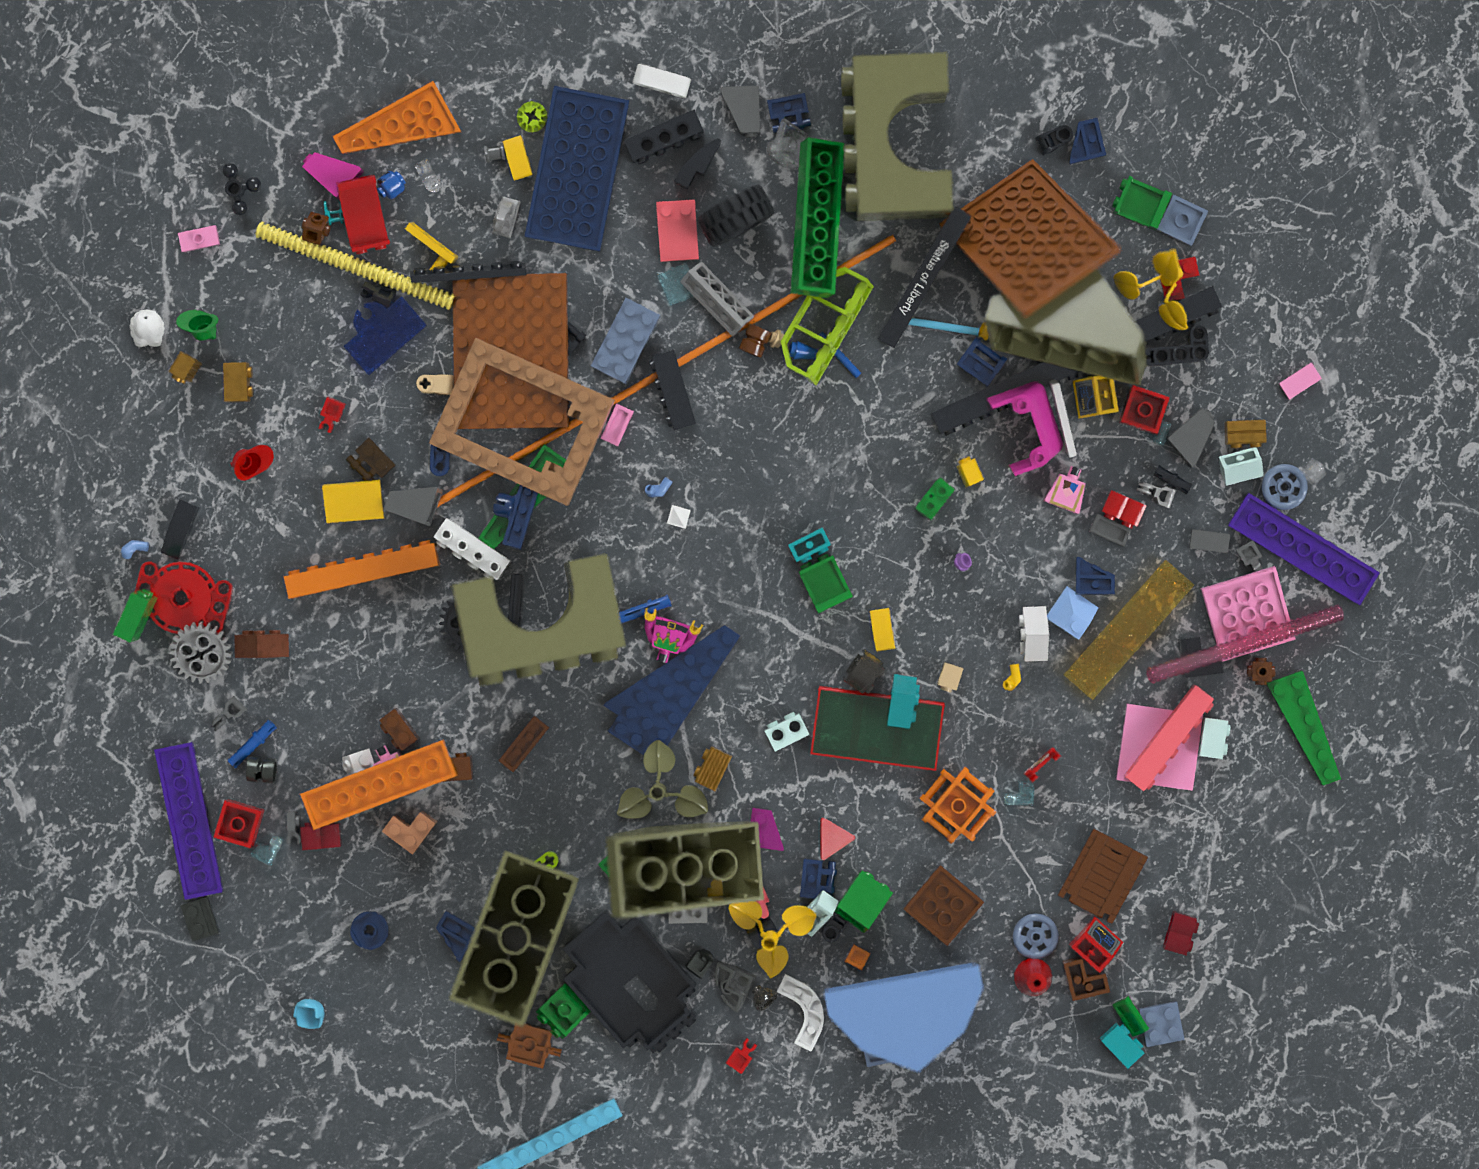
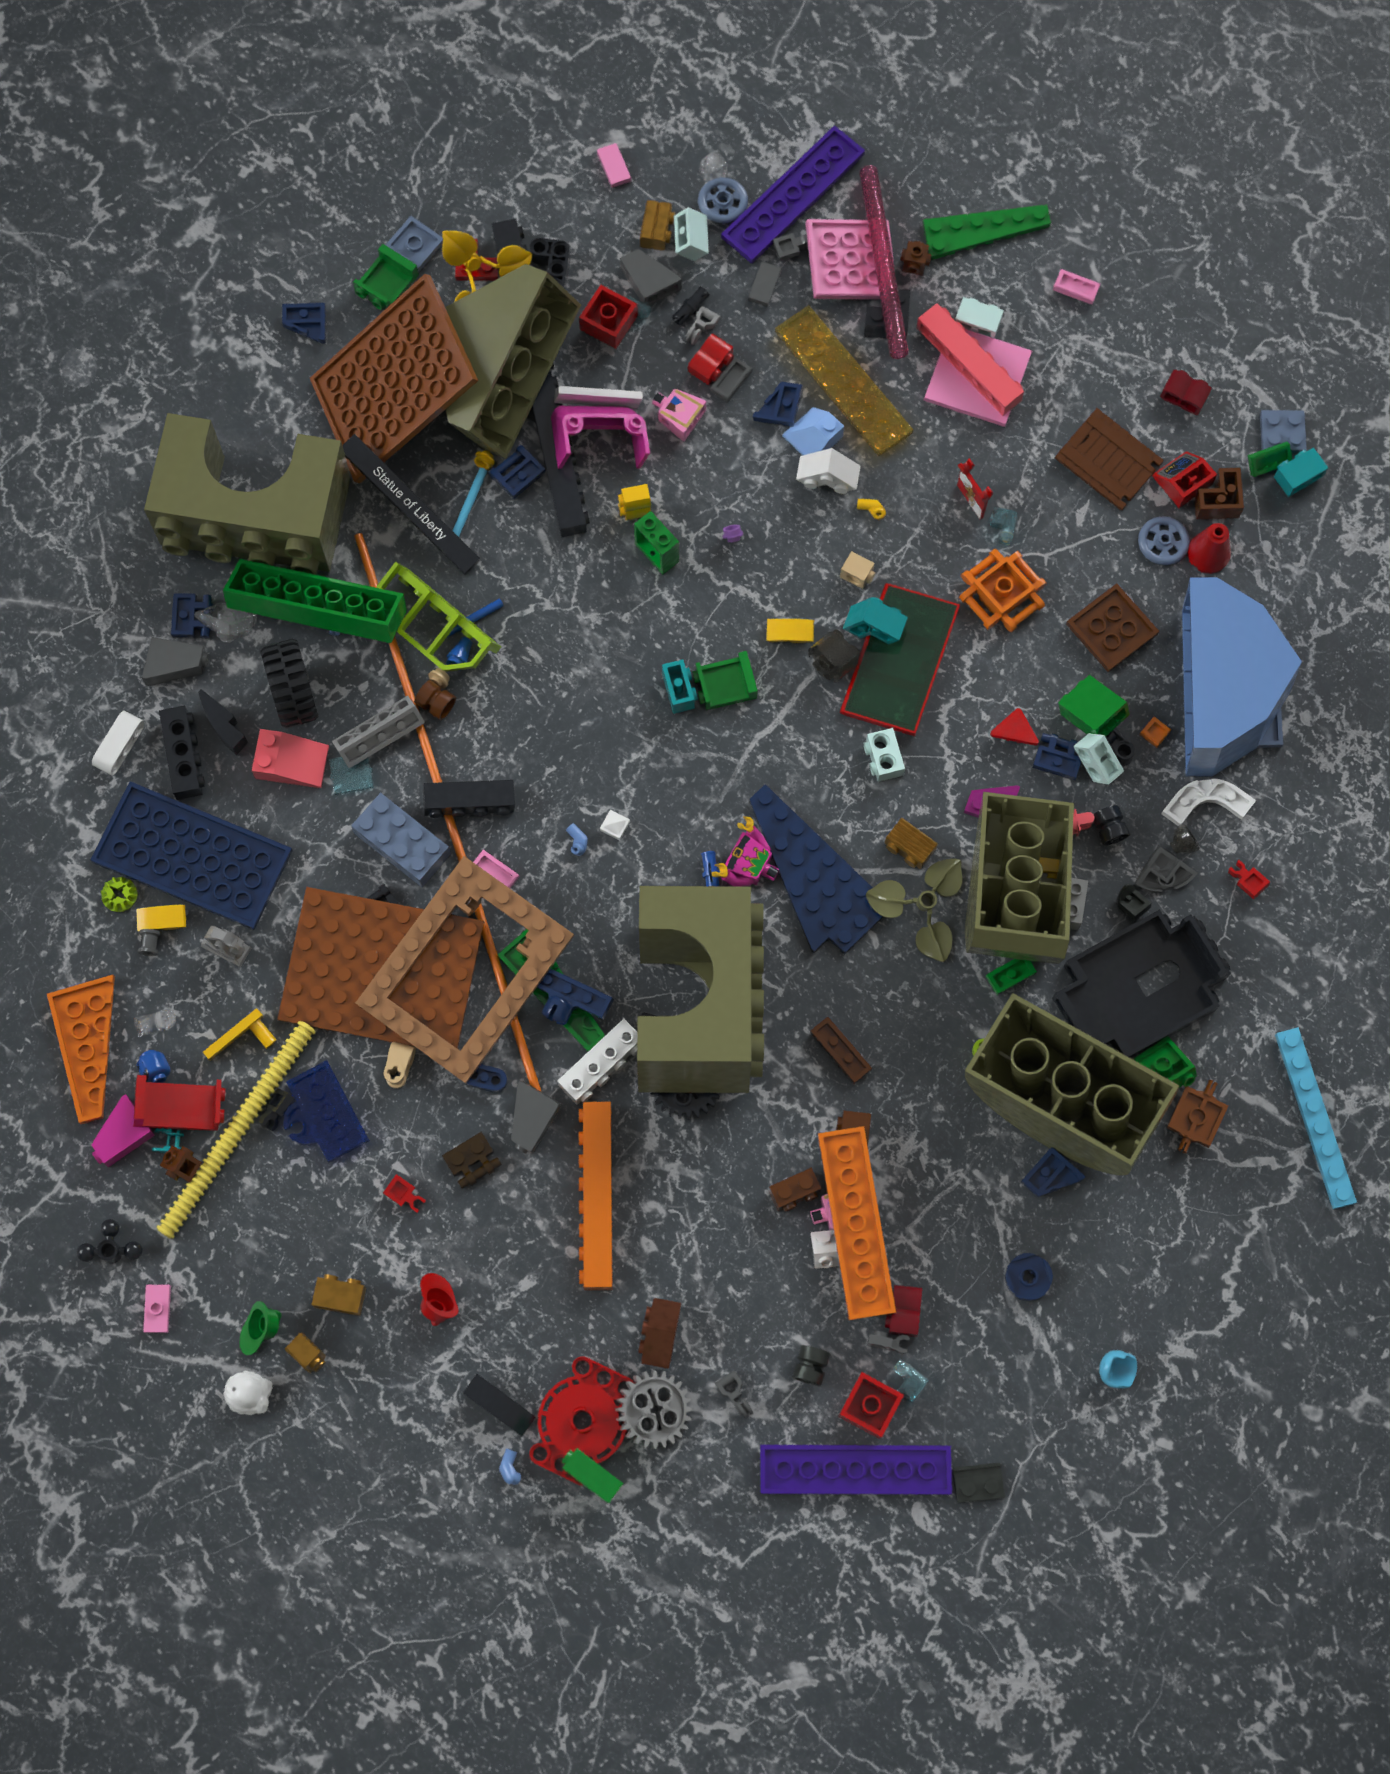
camera: 75 degrees left, 15 degrees down
(255, 740) = (779, 1375): blue pin -> none
(353, 501) = (513, 1188): yellow tile -> none
(409, 835) = (924, 1201): nougat brick -> none
(459, 272) = (275, 1006): black plate -> none
(773, 957) = (1106, 777): yellow plant -> none
(1053, 139) = (293, 352): black piece -> none
(1095, 396) = (582, 361): yellow slope -> none
(1264, 819) = (1076, 286): none -> bright pink plate

